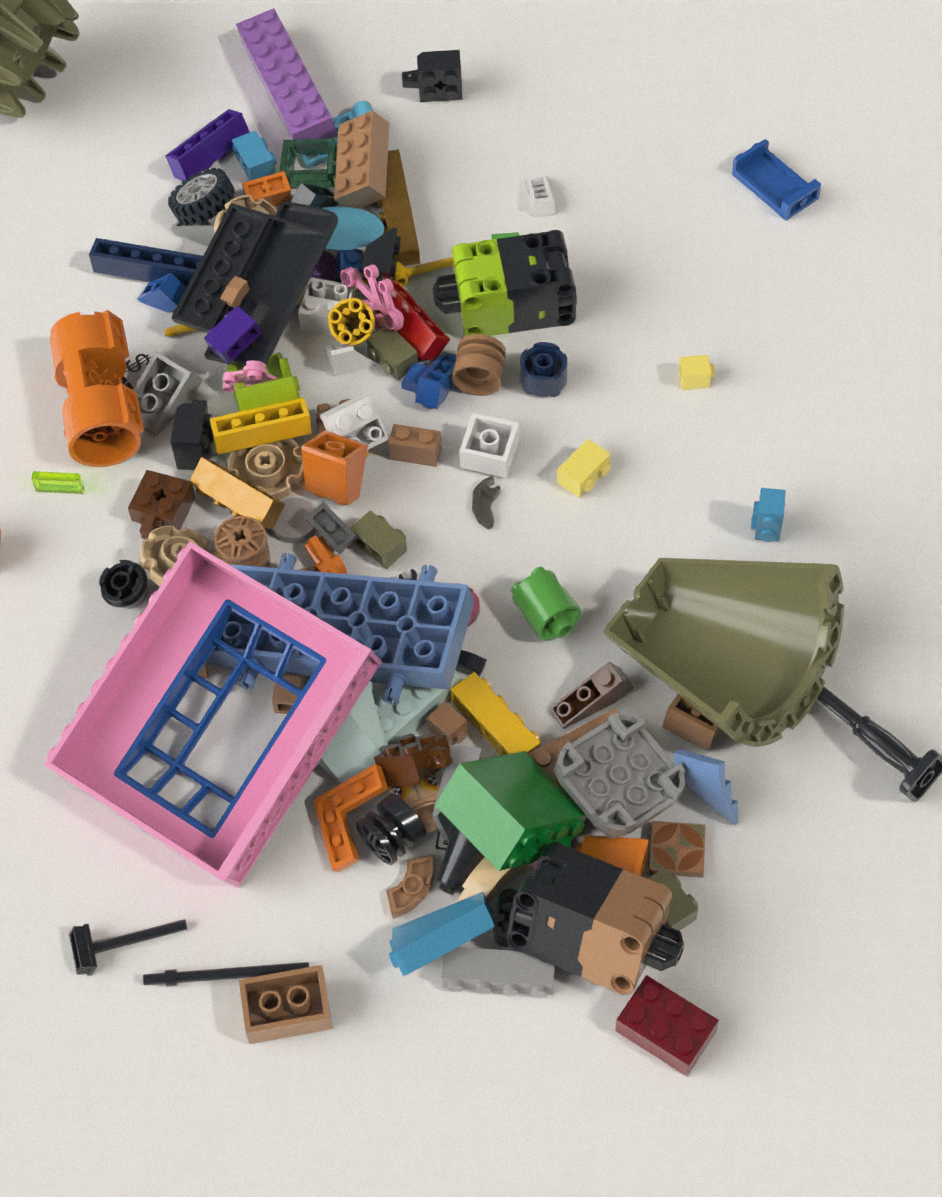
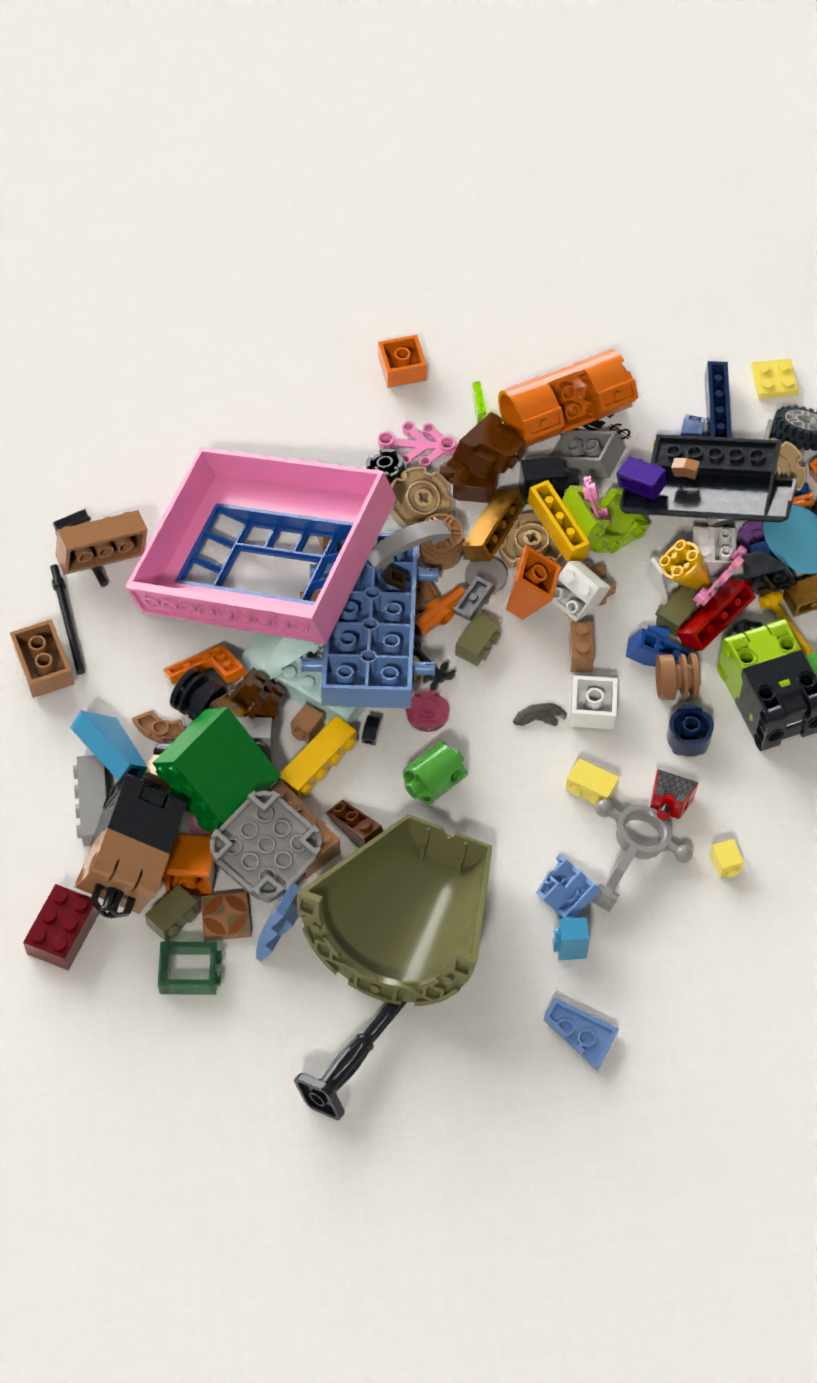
camera: 75 degrees right, 0 degrees up
(90, 551) = (420, 444): none -> bright pink plant
(119, 214) = (774, 378): none -> light yellow plate
(137, 908) = (101, 542): none -> medium nougat brick
(138, 471) = (488, 448): none -> reddish brown brick
(247, 553) = (405, 539): none -> light grey slope
(298, 588) = (394, 578): none -> dark brown slope
(615, 401) = (672, 795): none -> torso
(706, 512) = (567, 889): none -> medium blue slope
(717, 480) = (607, 897): none -> light grey piece
(738, 918) = (185, 986): none -> clear green window
(867, 532) = (582, 1031): none -> medium blue wing

